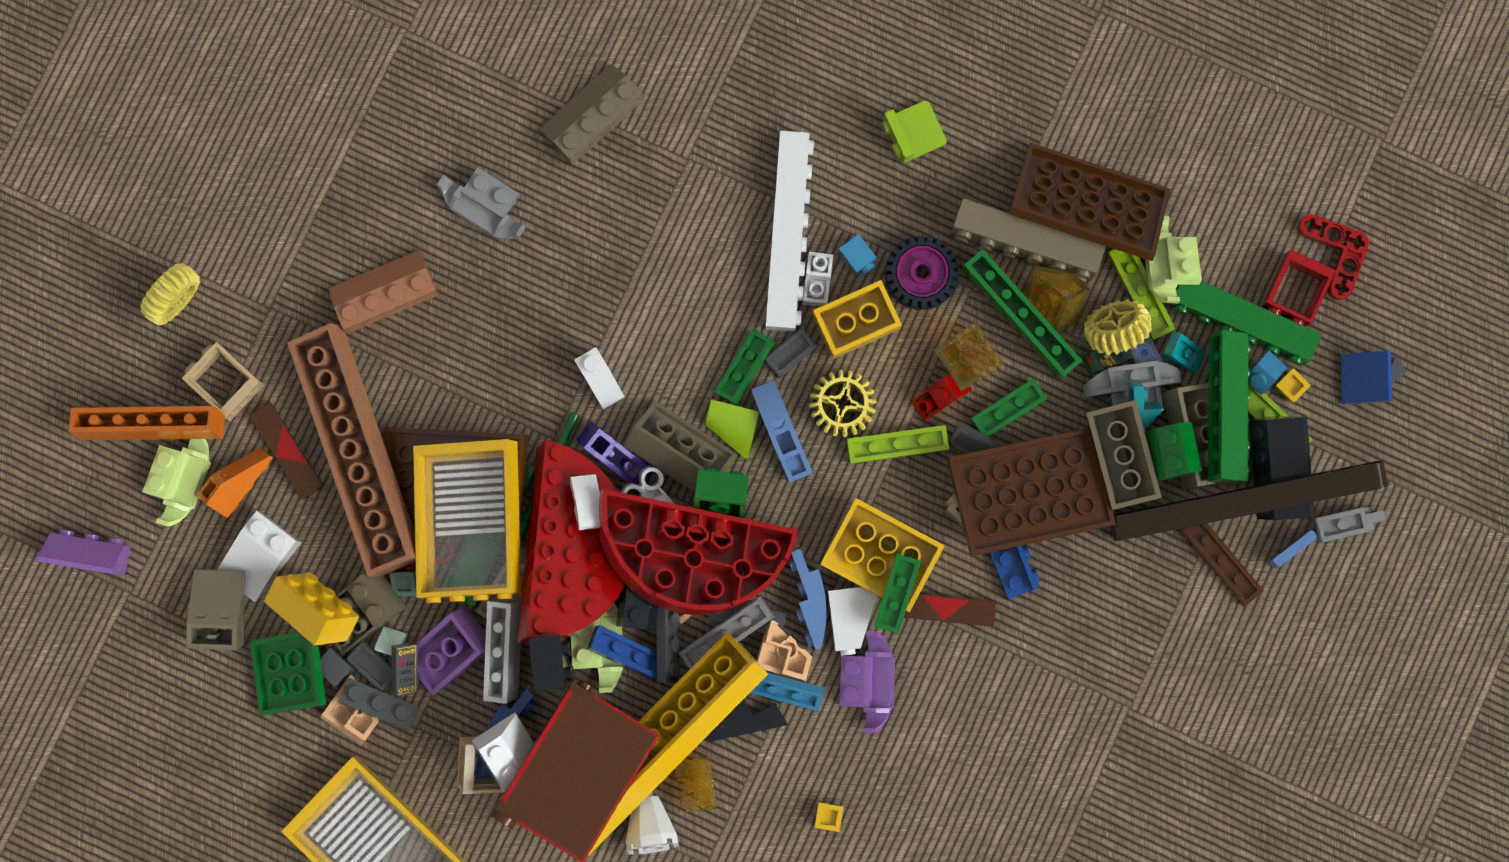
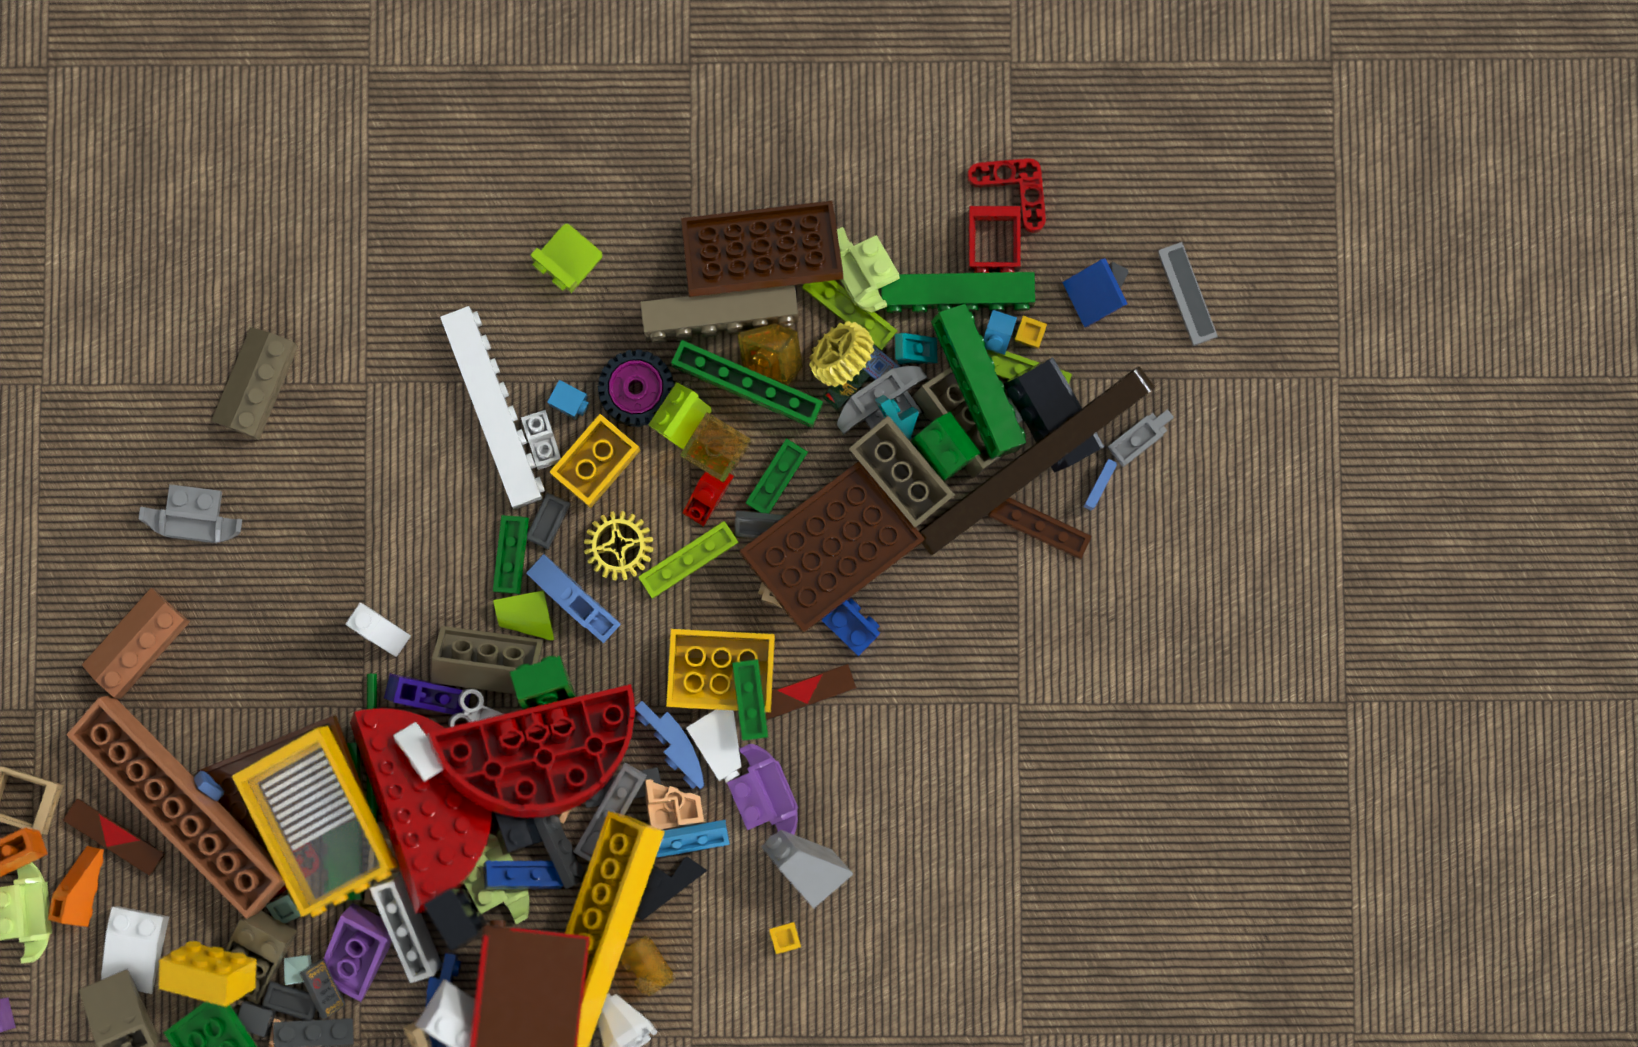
camera: 25 degrees left, 0 degrees up
(388, 444) = (208, 786): none -> medium blue tile
(879, 763) = (807, 865): none -> light grey slope
(949, 314) = (679, 415): none -> lime bracket
(1447, 416) = (1187, 294): none -> tile

